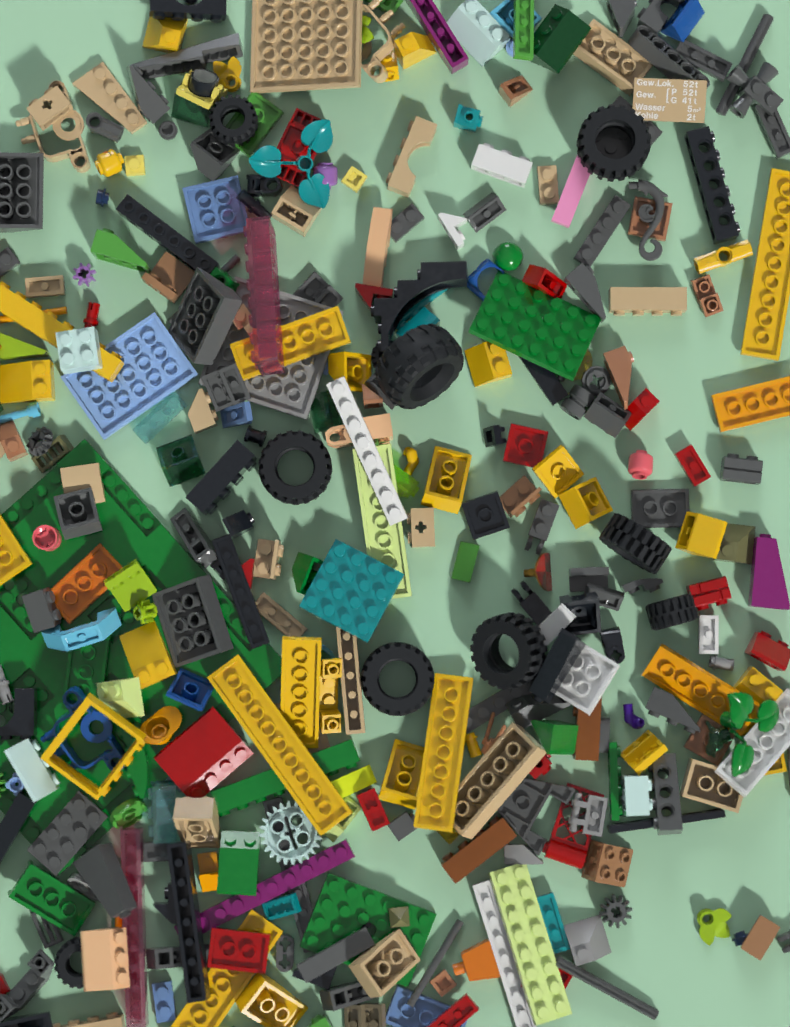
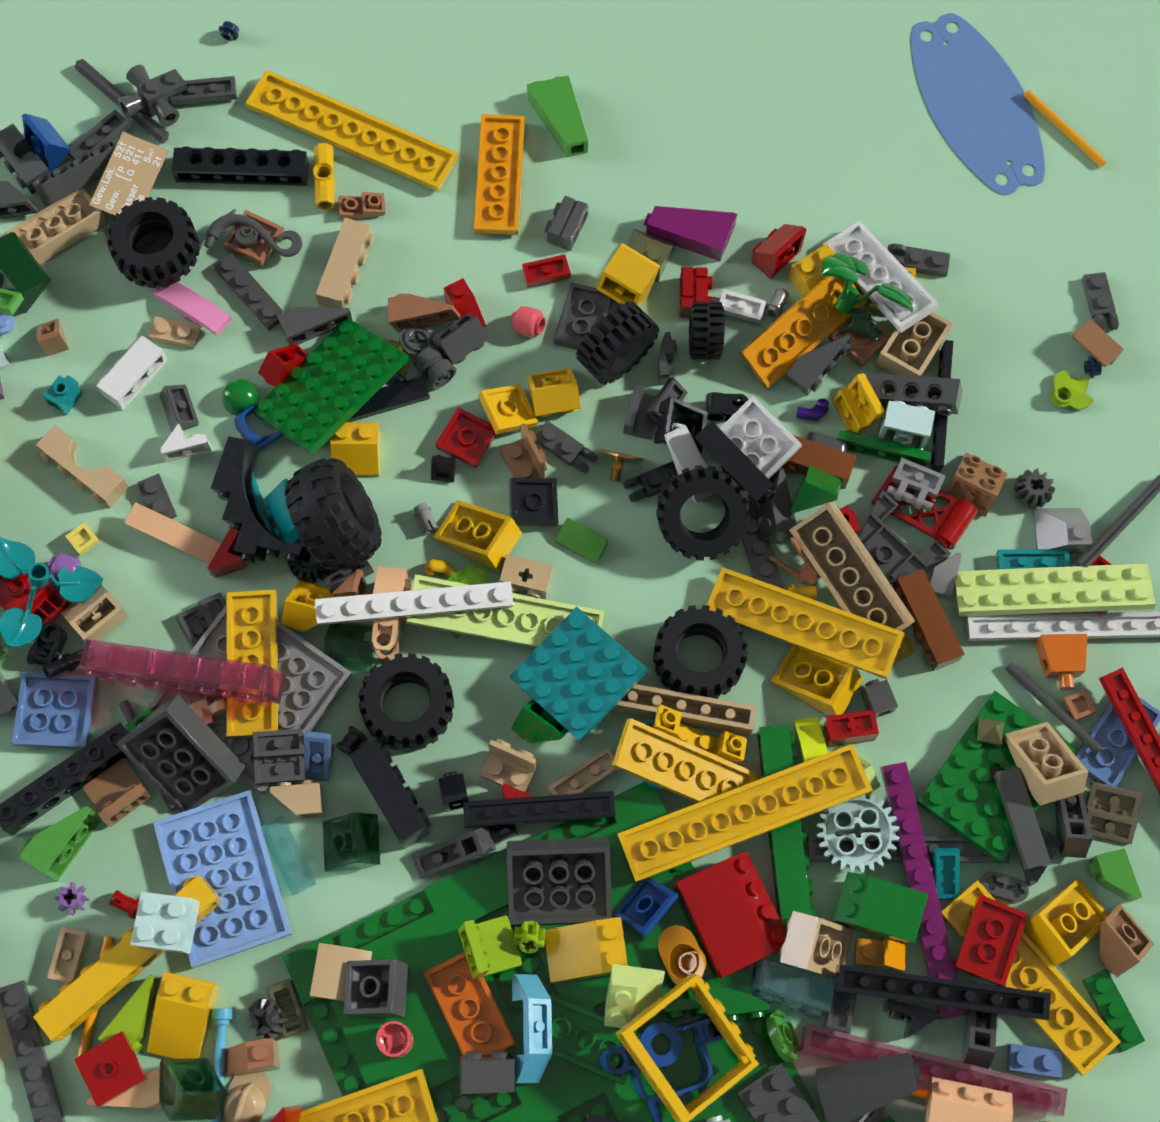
camera: 75 degrees left, 15 degrees down
(448, 434) = (425, 518): none -> light grey pin

